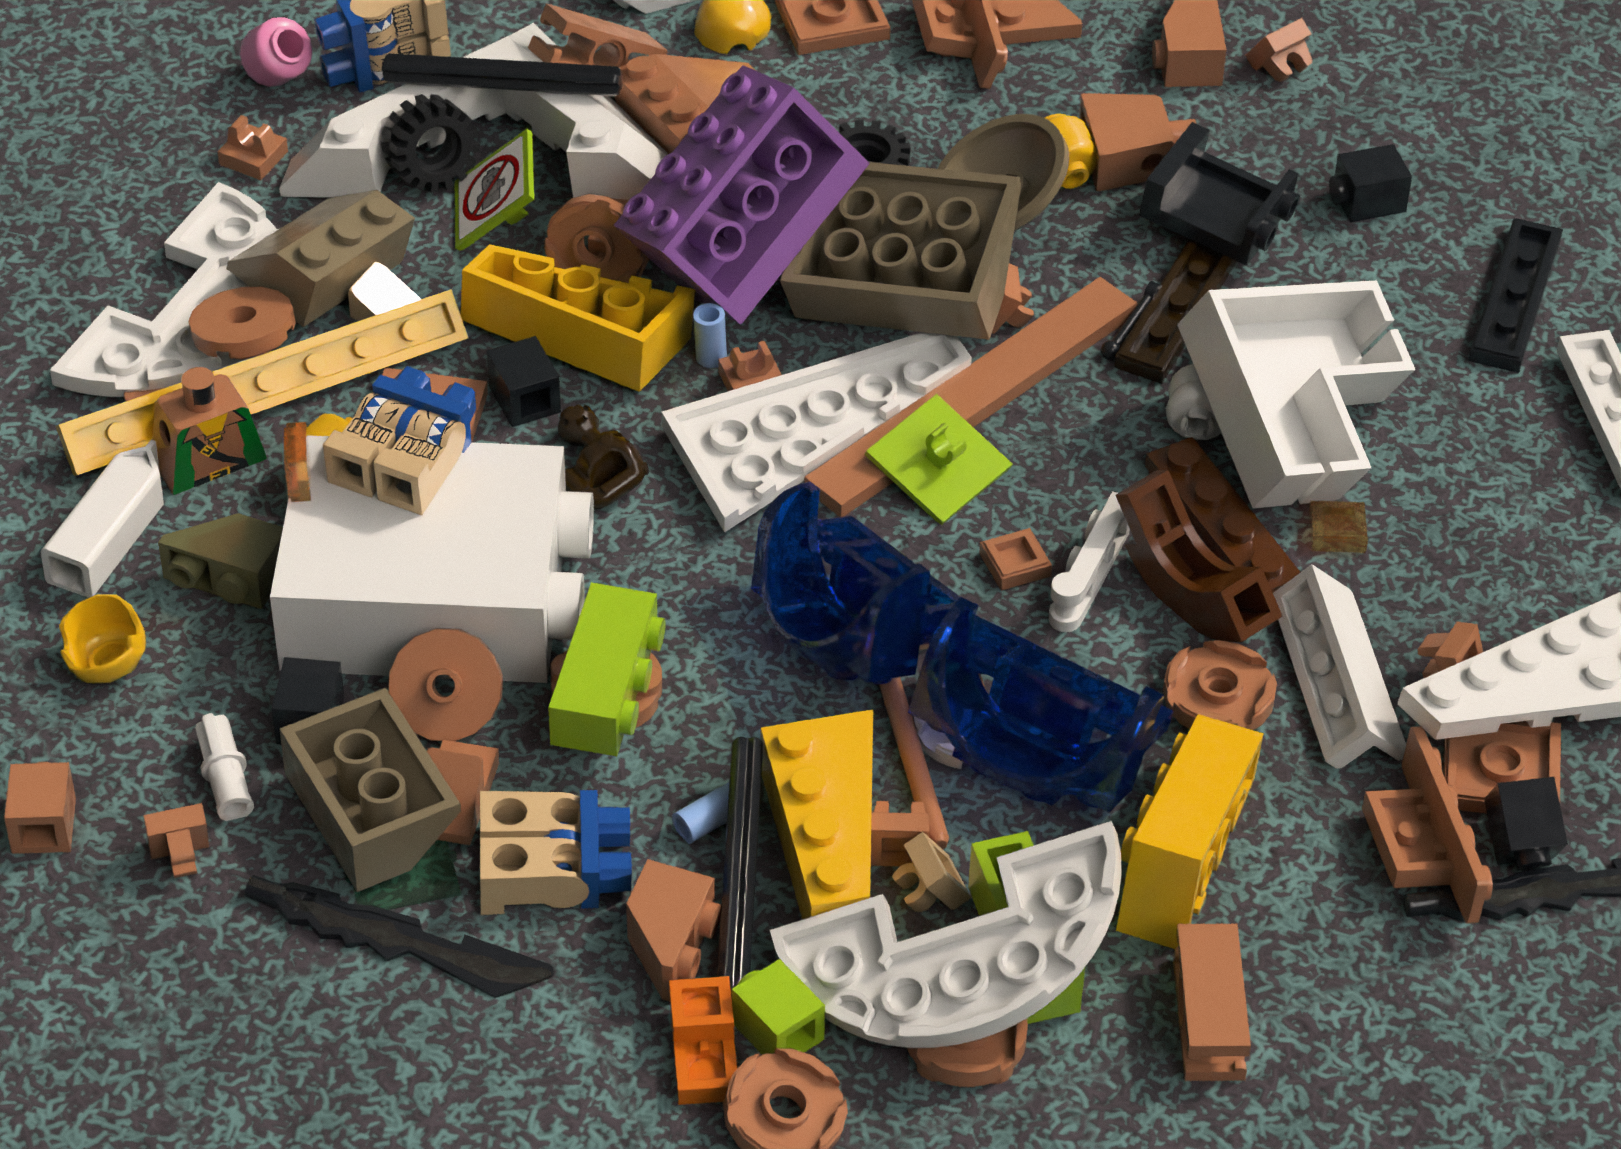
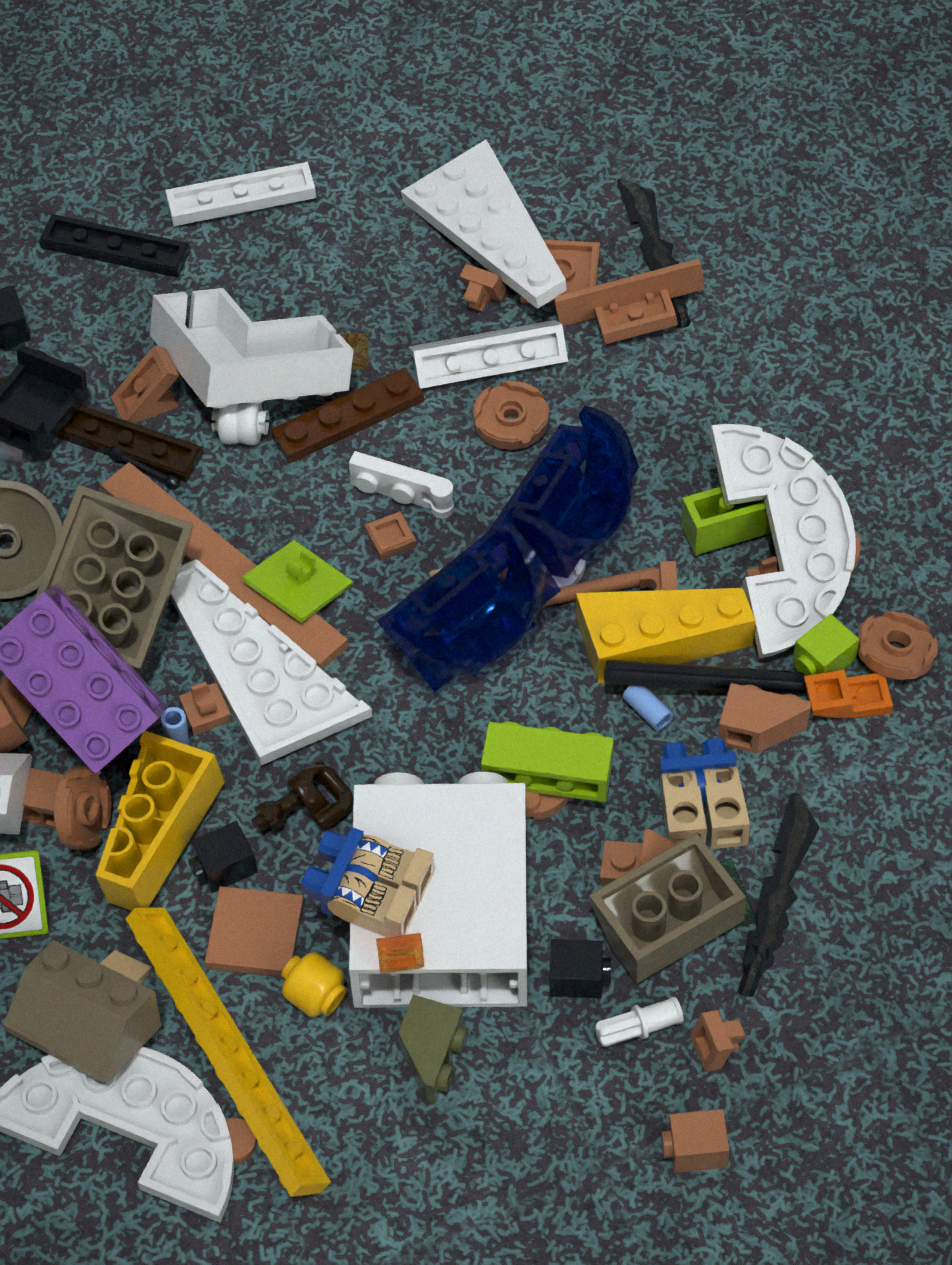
camera: 90 degrees left, 10 degrees up
(102, 639) = (528, 1121): yellow hair -> none
(105, 522) = (391, 1142): white piece -> none
(203, 431) = (296, 1072): nougat torso -> none
(242, 322) = (156, 1046): nougat tile -> none
(475, 677) = (561, 870): nougat plate -> none
(935, 875) = (697, 567): tan tile -> none
(1184, 573) = (421, 422): reddish brown arch -> none
(1185, 828) = (659, 422): yellow wedge -> none
(1211, 1002) = (798, 415): nougat piece -> none
(1526, 822) = (622, 252): black brick -> none

